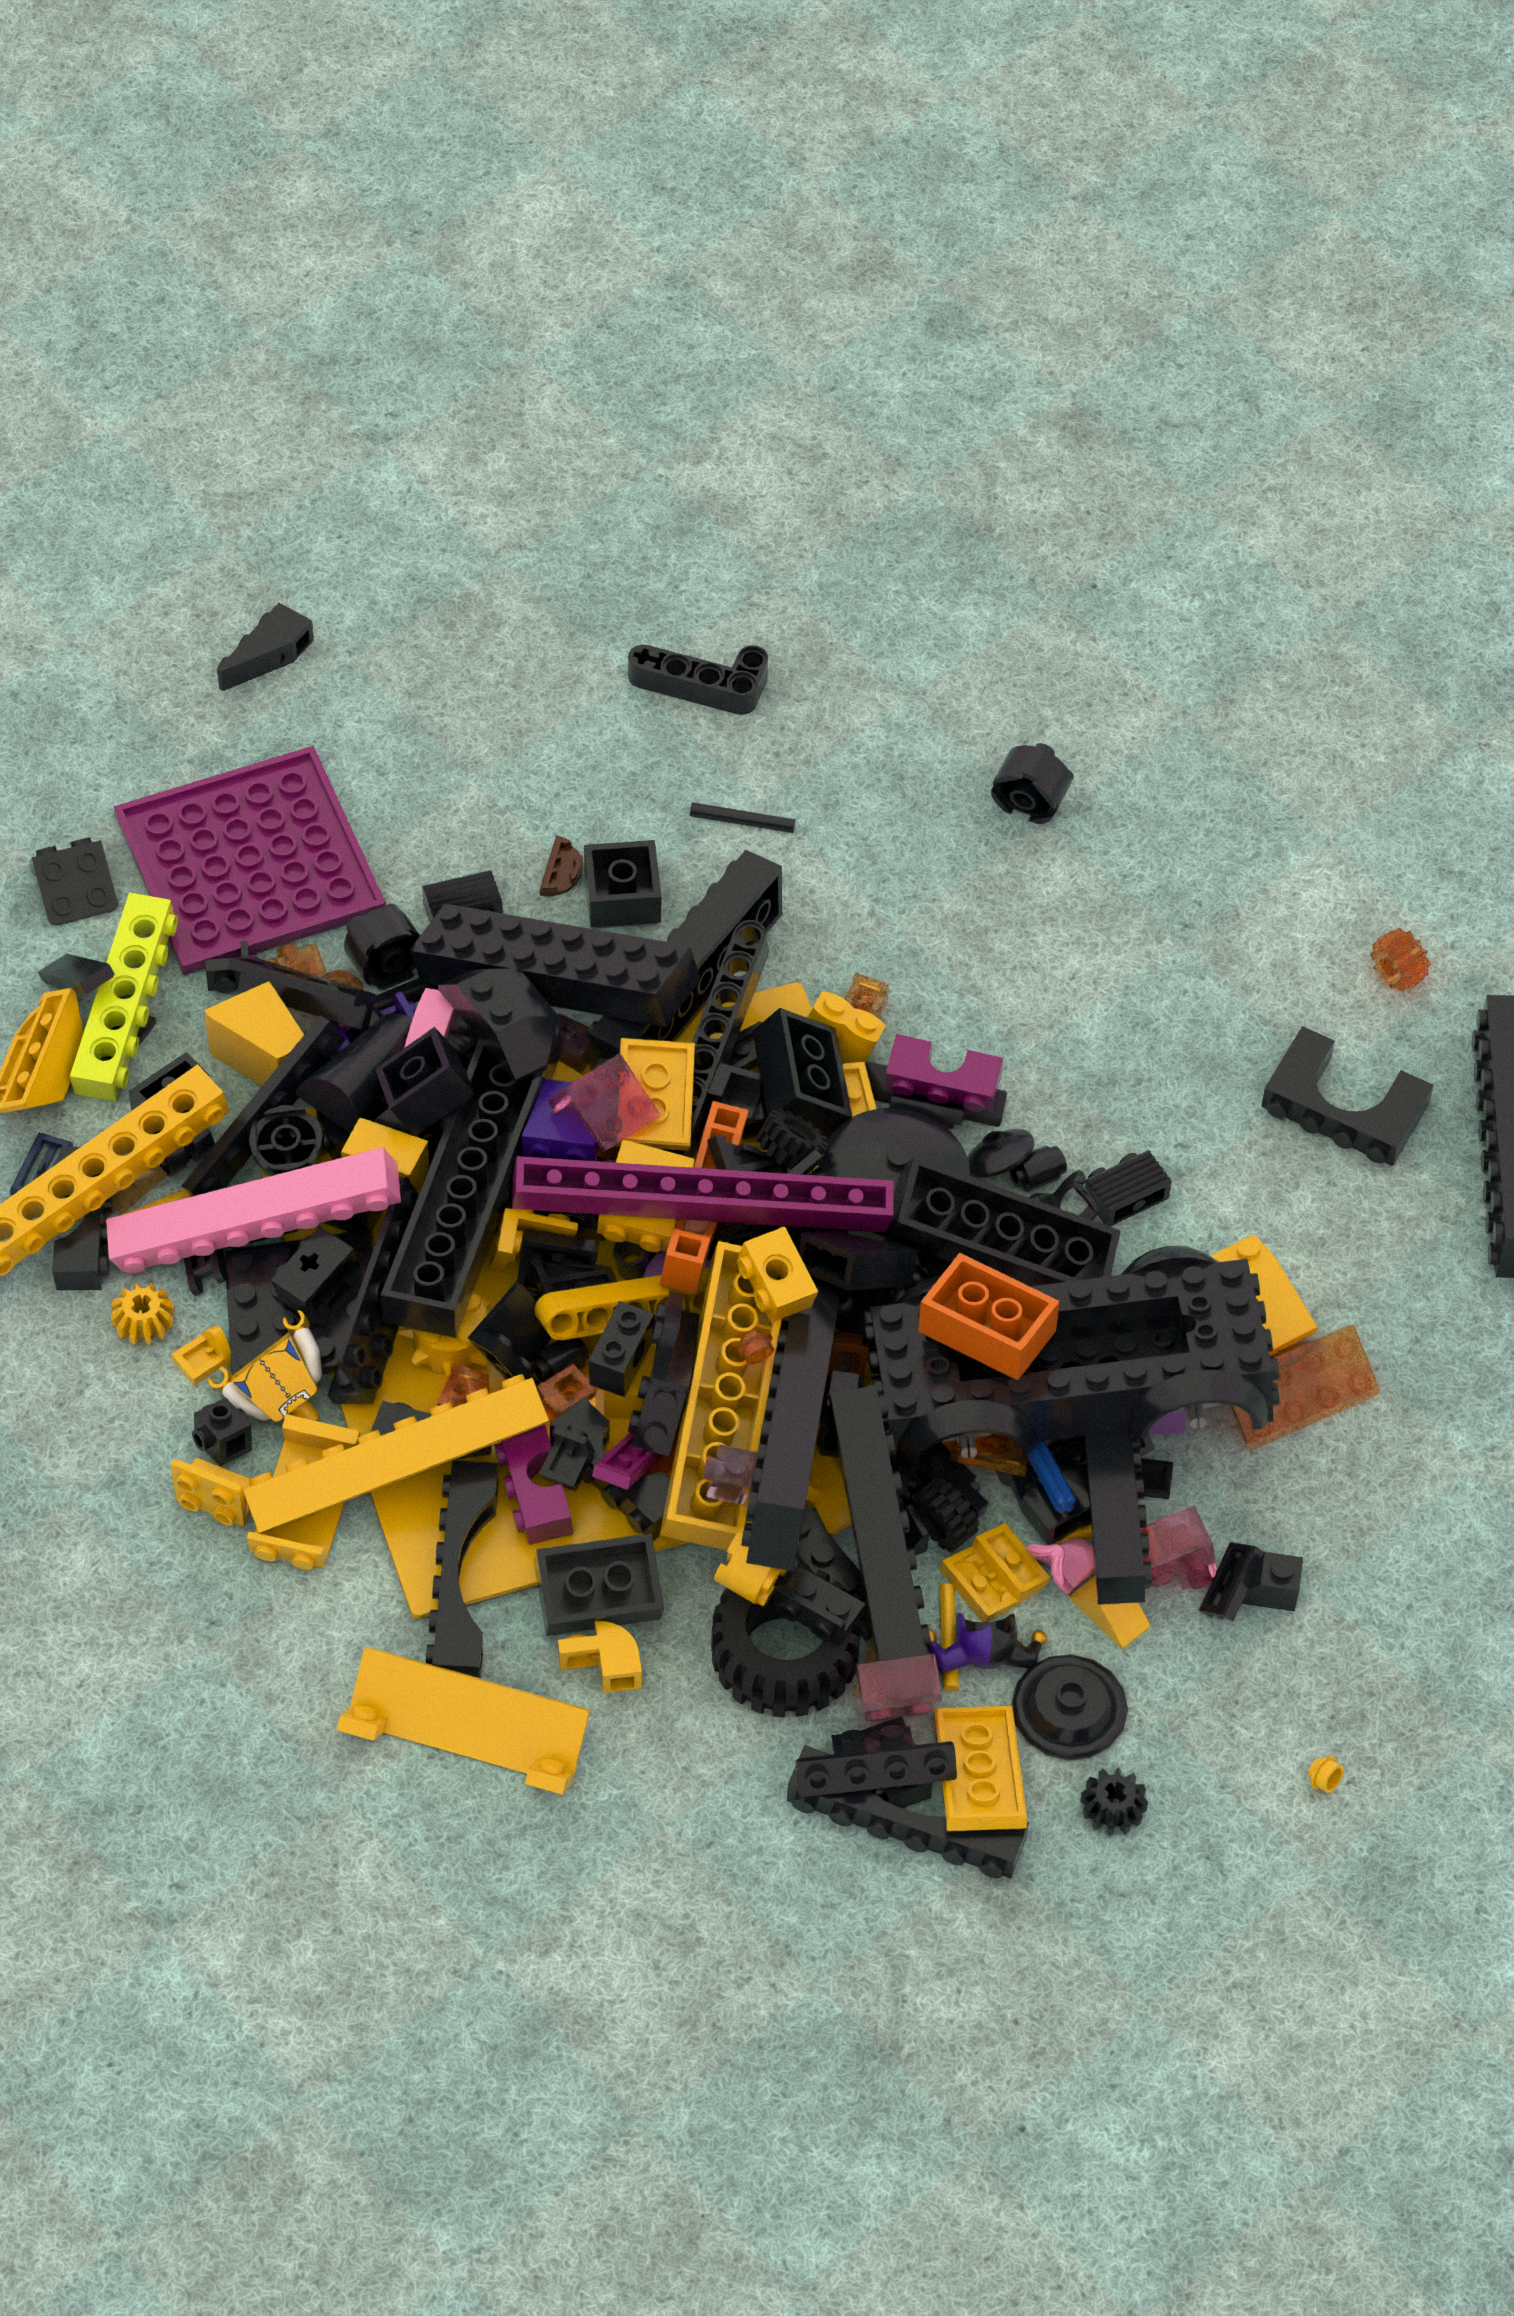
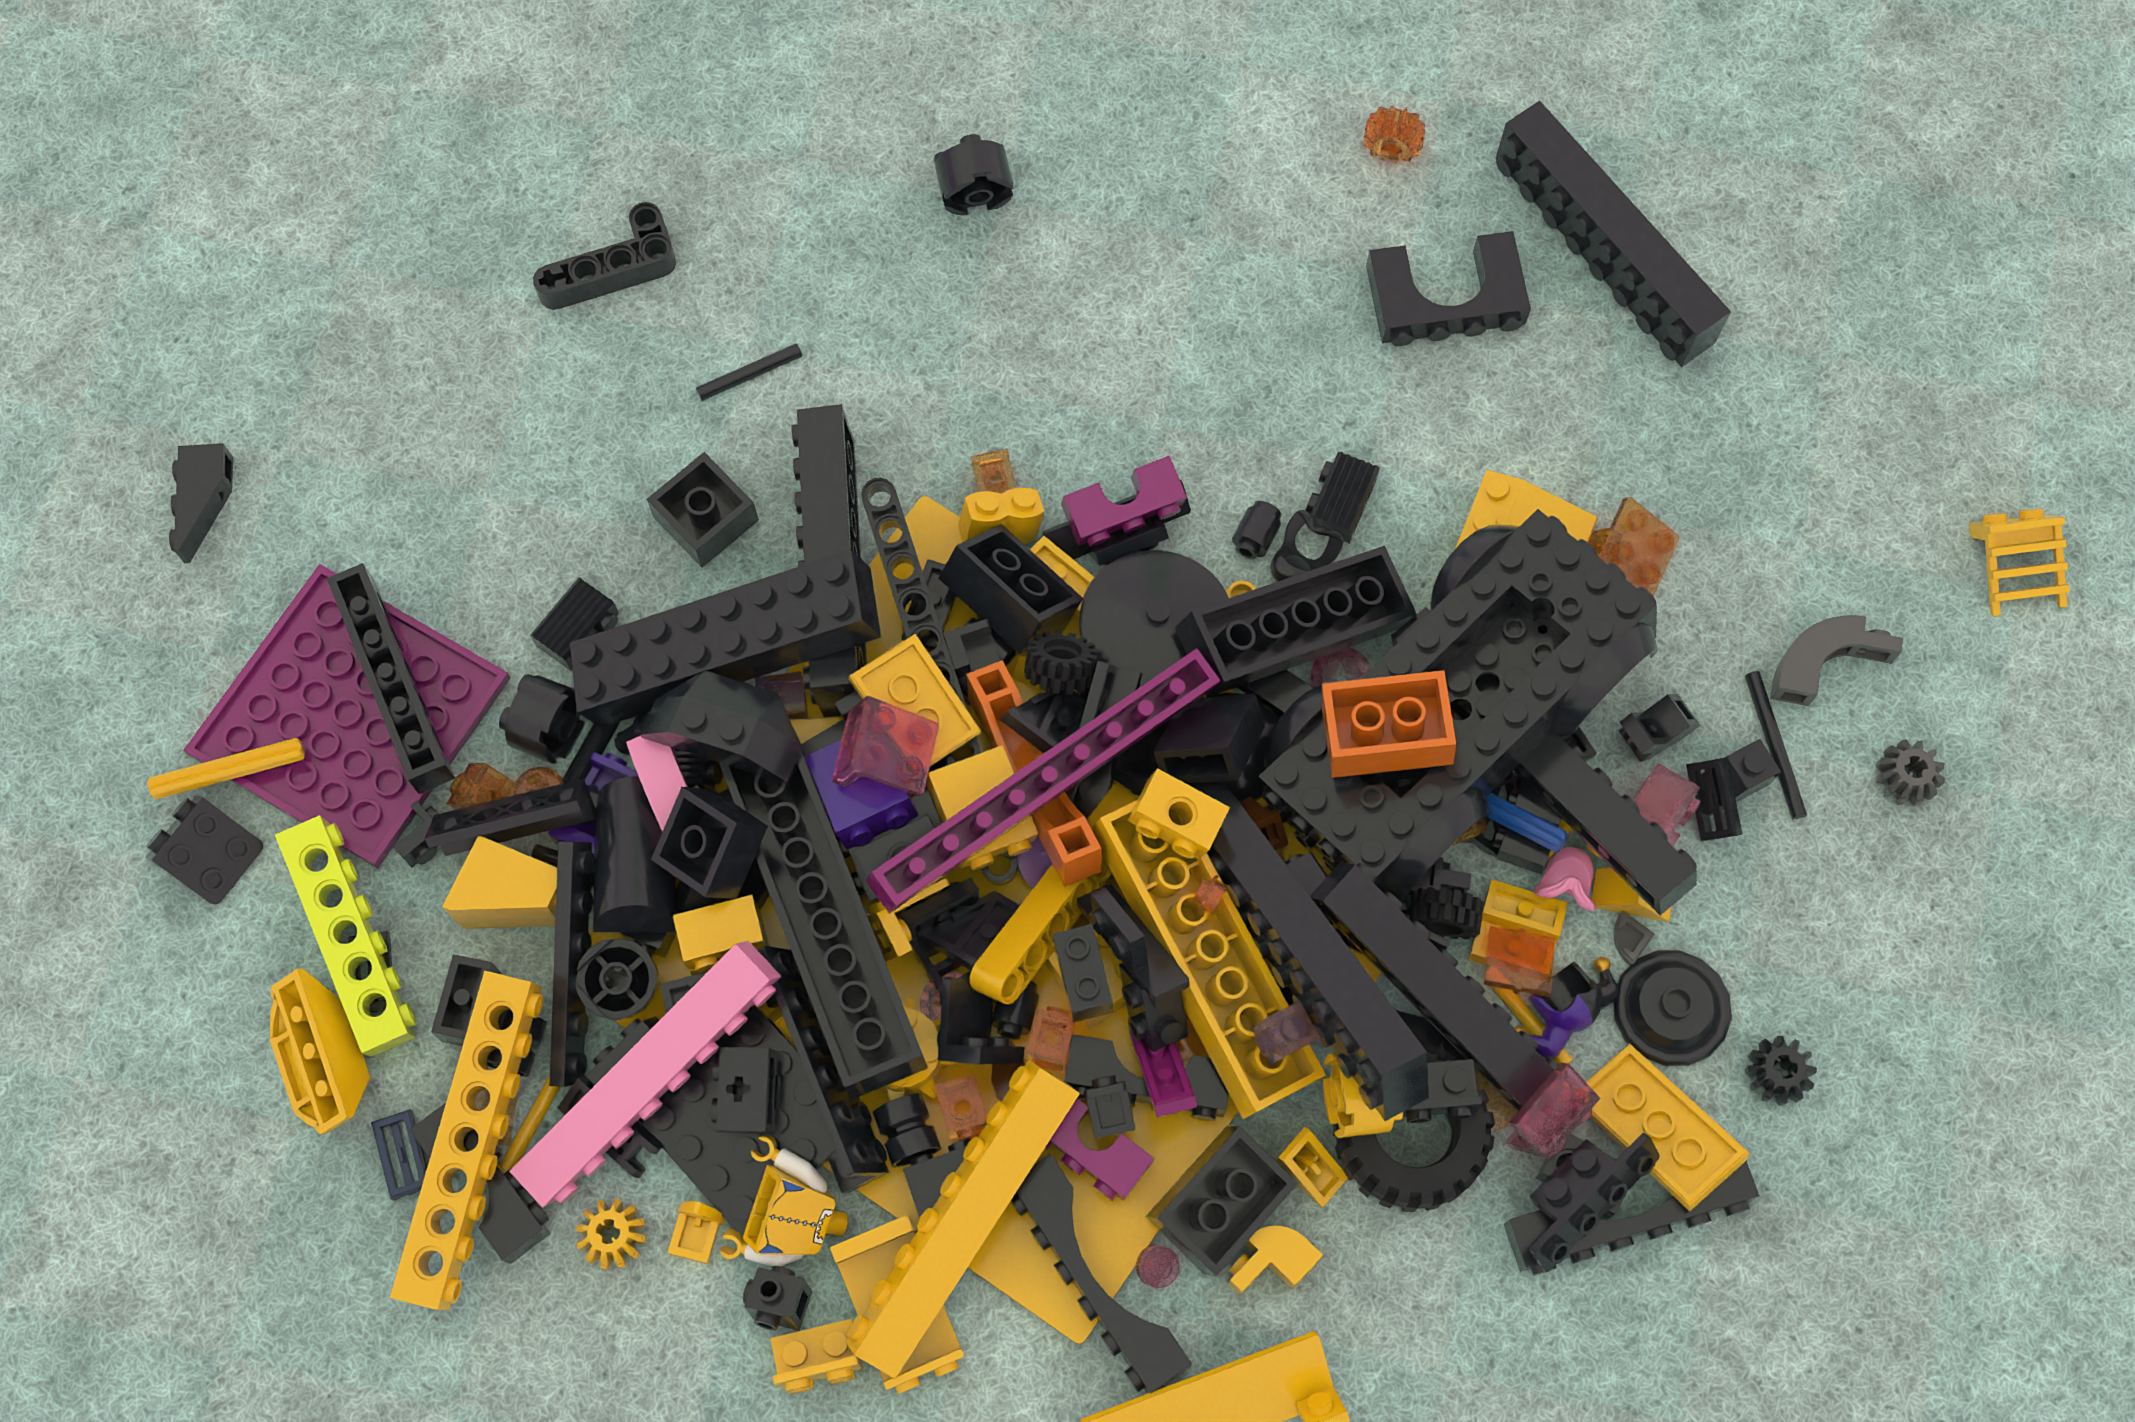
camera: 35 degrees left, 15 degrees up
(76, 973) = (286, 946): black tile -> none
(133, 835) = (226, 768): none -> yellow axle
(296, 846) = (390, 679): none -> black brick
(410, 1378) = (906, 1129): none -> black wheel
(515, 1604) = (1157, 1266): none -> clear pink tile
(563, 868) = (634, 528): reddish brown tile -> none
(687, 1613) = (1312, 1167): none -> yellow slope
(972, 1586) = (1519, 961): none -> clear orange piece
(1000, 1152) = (1219, 537): black dish -> none
(1081, 1637) = (1630, 937): none -> dark grey tile
(1233, 1506) = (1658, 726): none -> black brick
(1323, 1586) = (1775, 744): none -> black bar
(1325, 1769) = (1915, 915): yellow plate -> none
(1399, 1675) = (1906, 786): none -> dark grey gear
(1421, 1536) = (1800, 667): none -> dark grey arch

